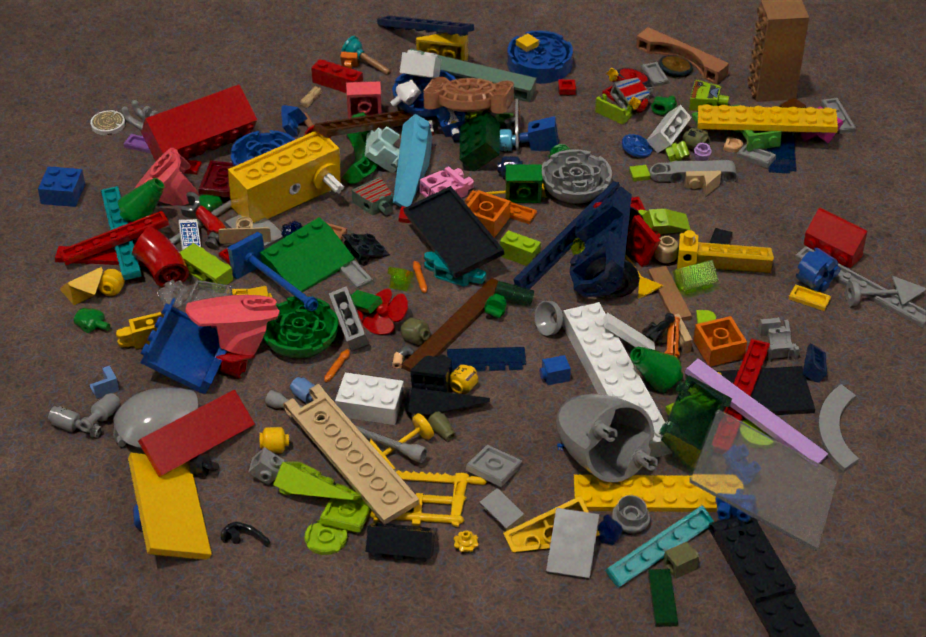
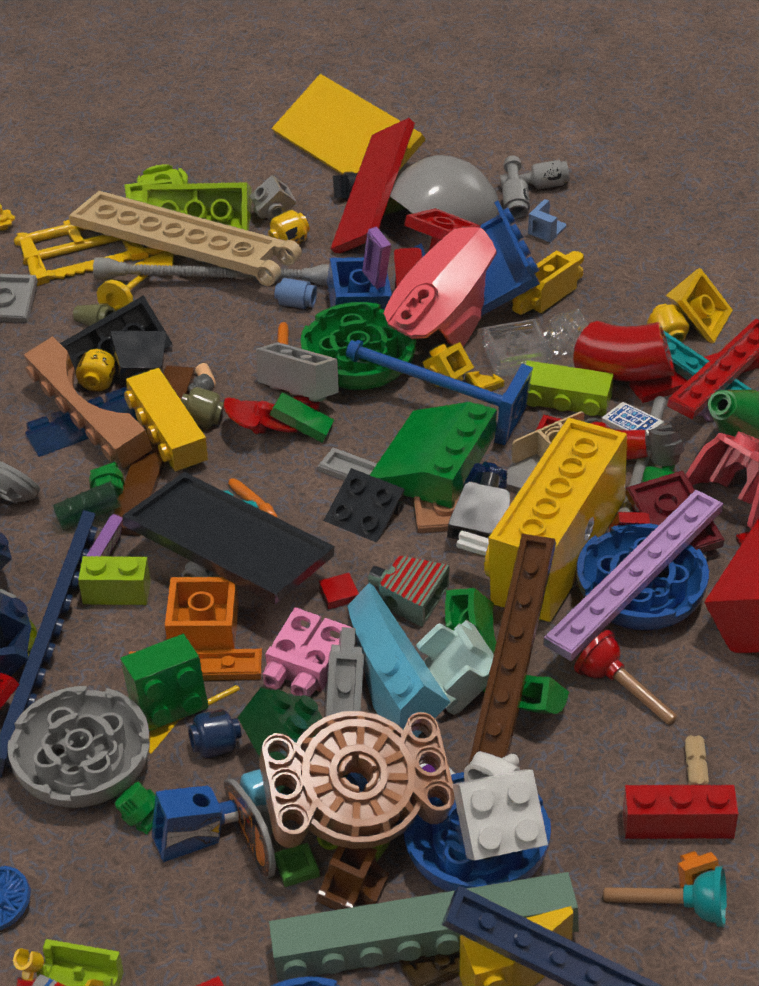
camera: 155 degrees right, 0 degrees up
(90, 319) = (642, 280): green piece -> none
(190, 362) = (436, 224): none -> red tile
(233, 530) = (262, 151): black piece -> none
(243, 154) = (632, 575): none -> lavender tile
(256, 340) = (376, 257): none -> medium lavender tile
(267, 368) = (350, 284): none -> blue brick
(291, 118) = (677, 681): blue slope -> none
(312, 207) = (479, 507): none -> torso
(363, 98) = (573, 752): coral brick -> none
(370, 398) = (205, 306): white brick -> none
(400, 278) = (276, 472): clear neon green slope -> none
(400, 541) = (64, 191): black slope -> none
(437, 164) = (344, 675): none -> light grey hinge
(443, 320) = (166, 419): none -> yellow brick
(476, 321) = (116, 432): none -> nougat arch
(512, 270) = (108, 537): none -> medium lavender tile

